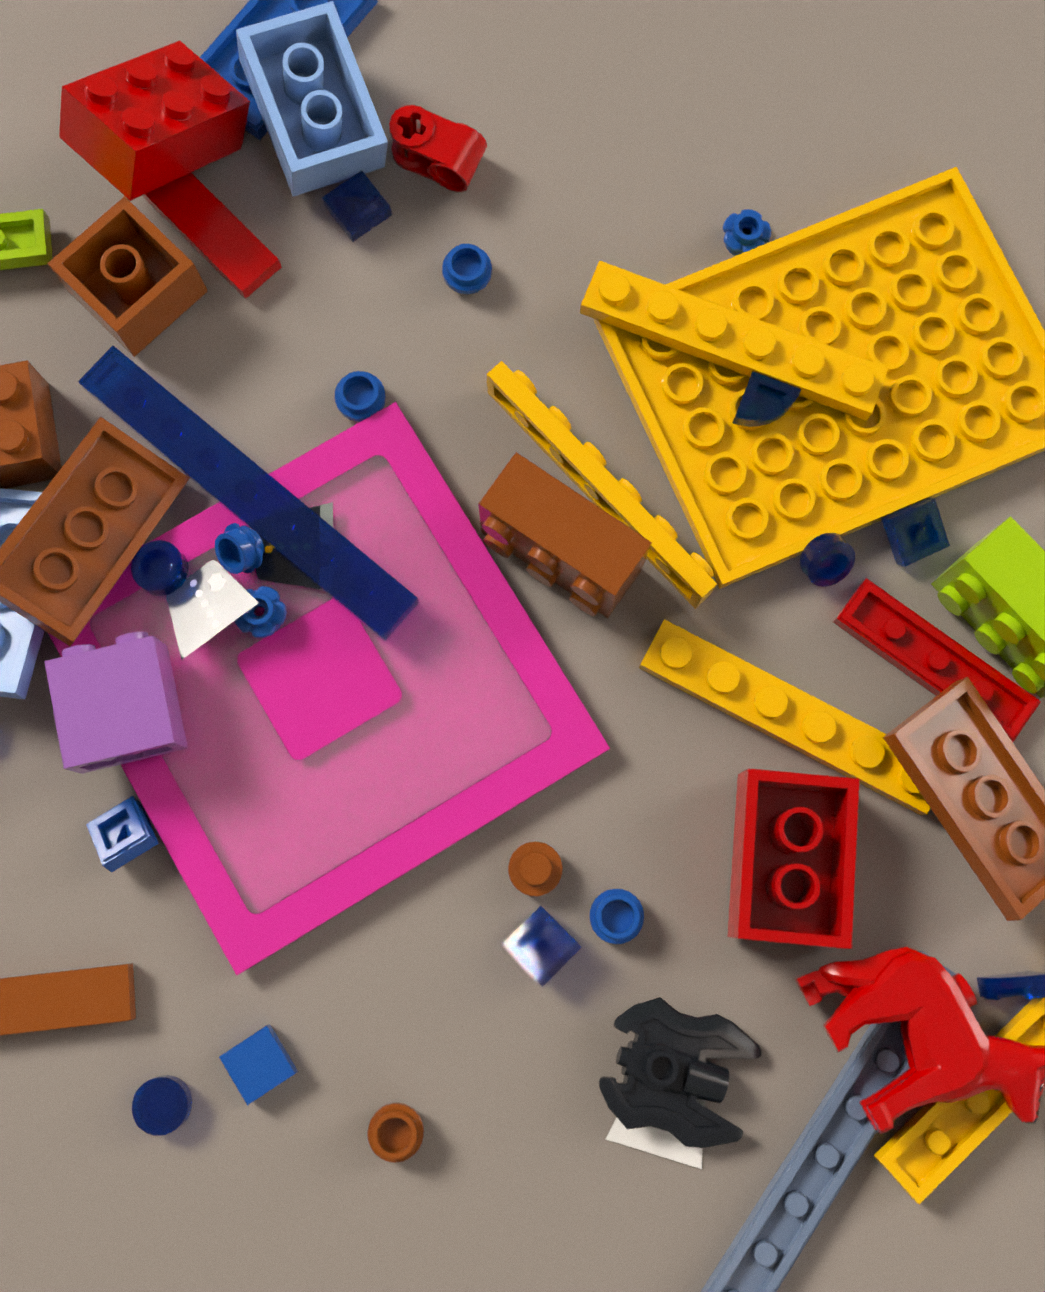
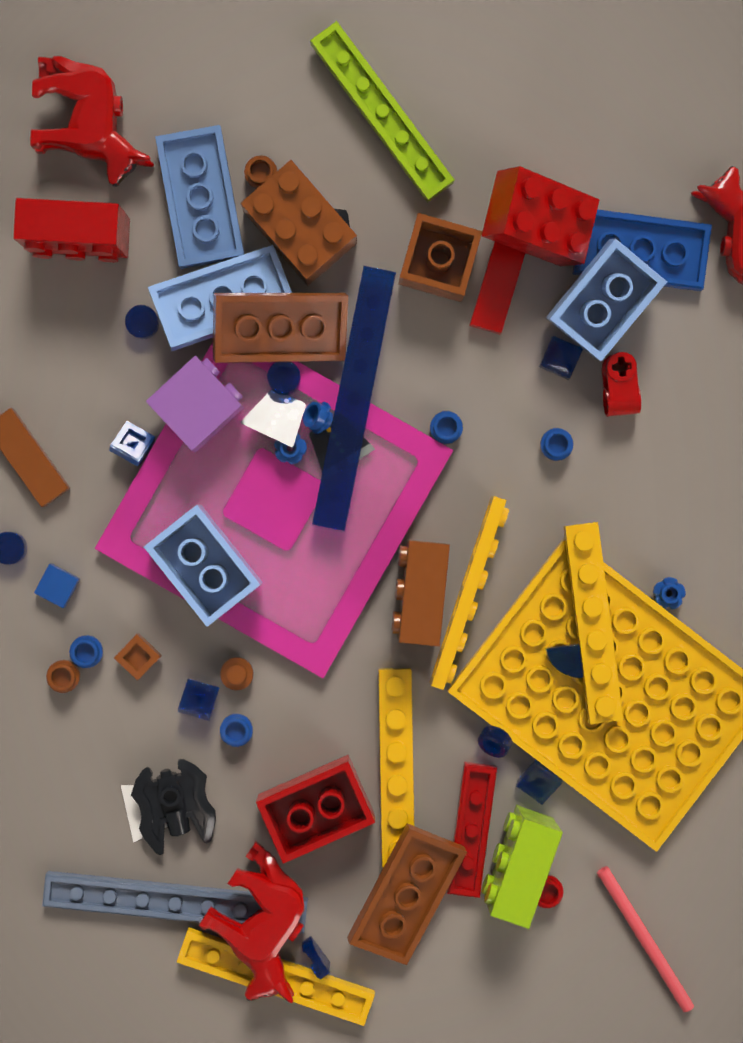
camera: 60 degrees right, 10 degrees up
(346, 819) = (203, 564): none -> light blue brick
(379, 1075) = (86, 651): none -> blue plate
(429, 1001) = (138, 656): none -> dark orange plate

